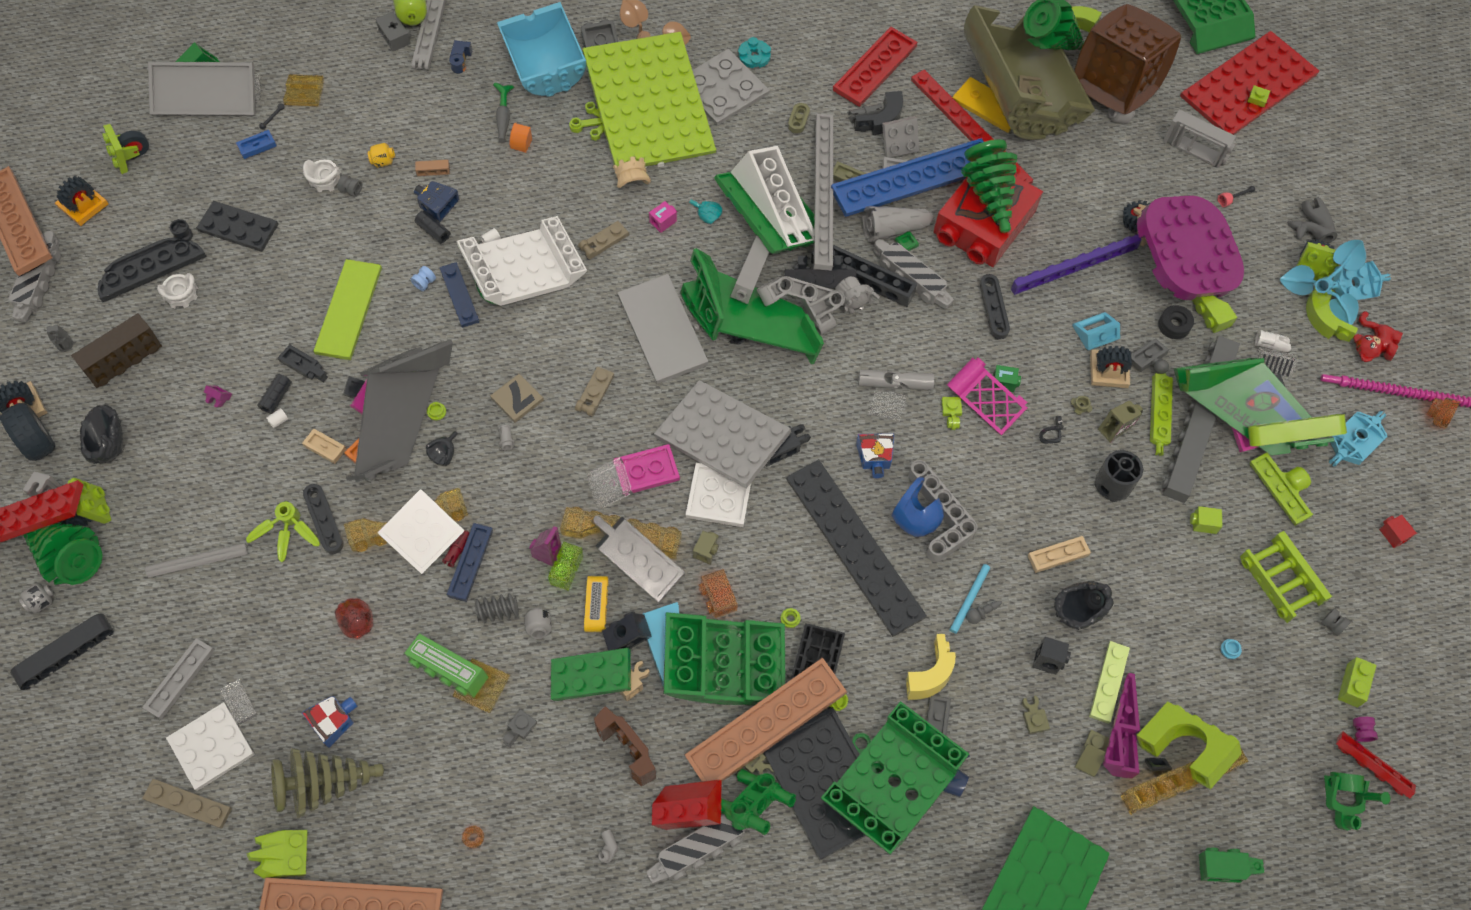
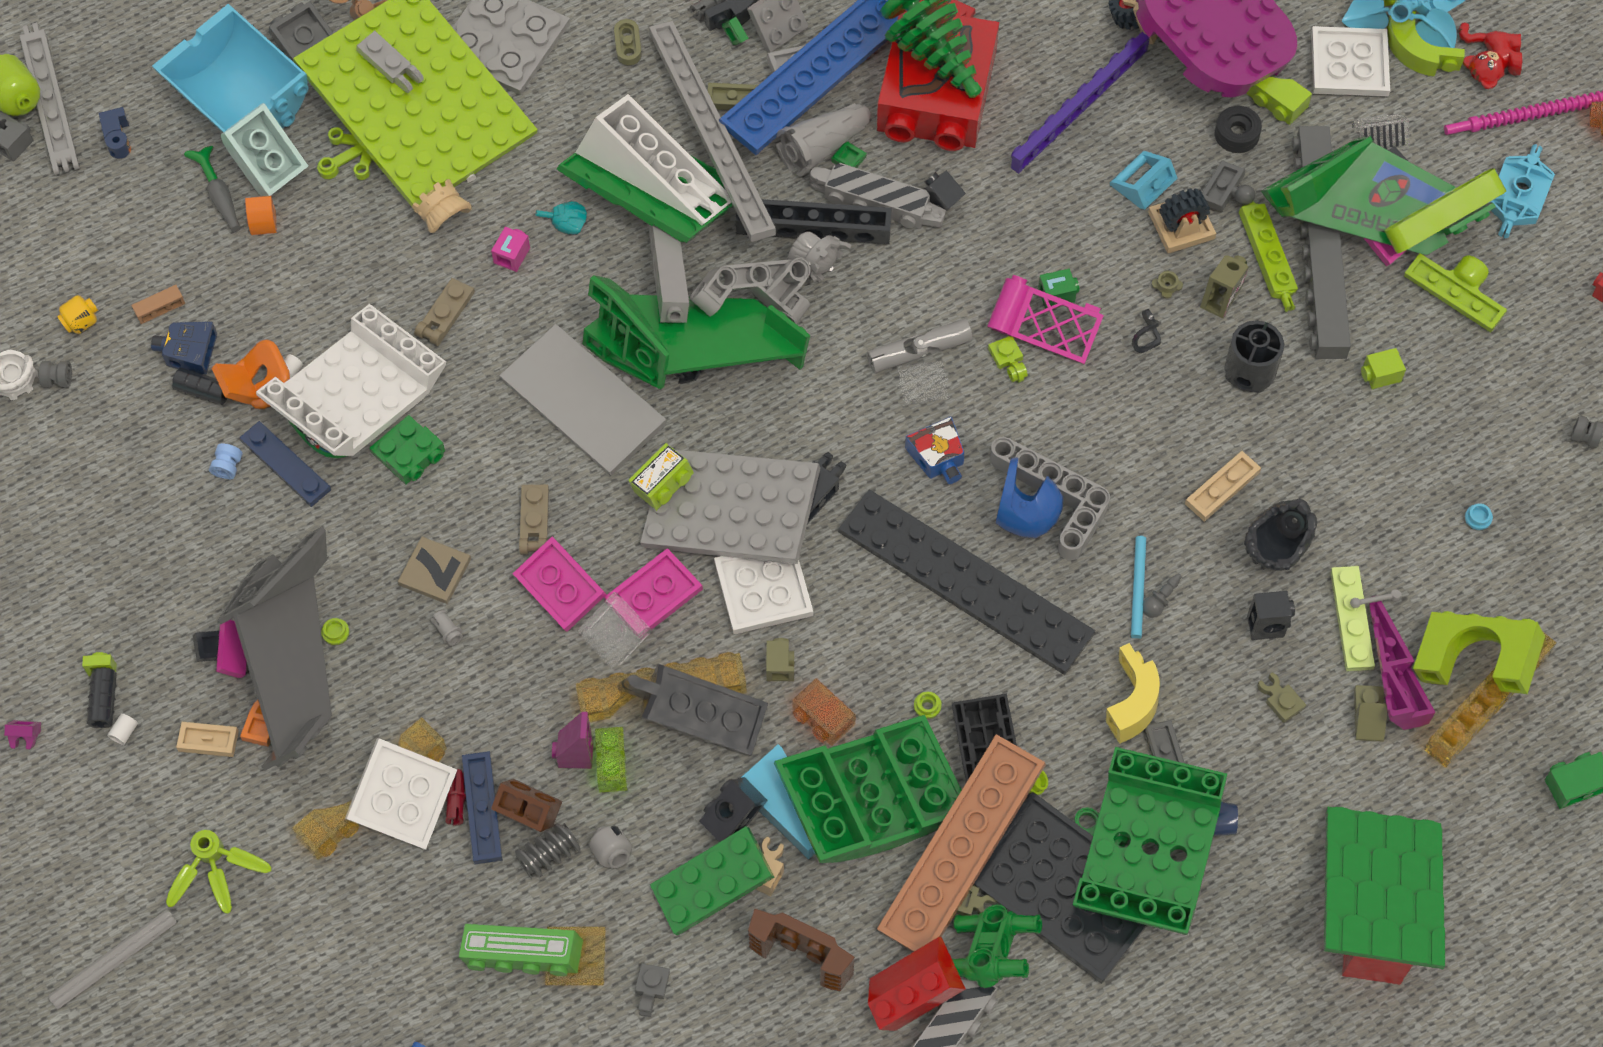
camera: 20 degrees left, 0 degrees up
(283, 370) = (98, 660): none -> lime plate
(302, 363) = (119, 642): black hinge -> none
(323, 518) = (256, 833): black plate -> none
(347, 309) = (141, 545): lime tile -> none
(354, 618) = (366, 942): clear red hair -> none
(441, 449) = (369, 679): black piece -> none
(454, 230) = (237, 378): none -> orange piece
(497, 572) = (526, 805): none -> reddish brown brick
(538, 97) = (263, 151): none -> light aqua brick
(538, 316) = (408, 449): none -> green plate
(589, 439) = (559, 584): none -> dark pink plate
(596, 603) = (674, 791): yellow beam -> none
(640, 71) = (388, 61): none -> light grey hinge
(685, 396) = (661, 476): none -> brick
(819, 277) = (759, 250): black hinge -> none
(869, 136) = (735, 31): none -> green tile
(957, 285) = (943, 190): none -> black brick
(994, 306) = (1001, 198): black plate -> none
(1147, 678) = (1395, 595): none -> light grey hinge
(1158, 766) = (1453, 695): black slope -> none
(1272, 341) = (1366, 107): white hinge -> none
(1274, 307) = (1350, 61): none -> white plate
(1293, 560) = (1507, 377): lime fence -> none

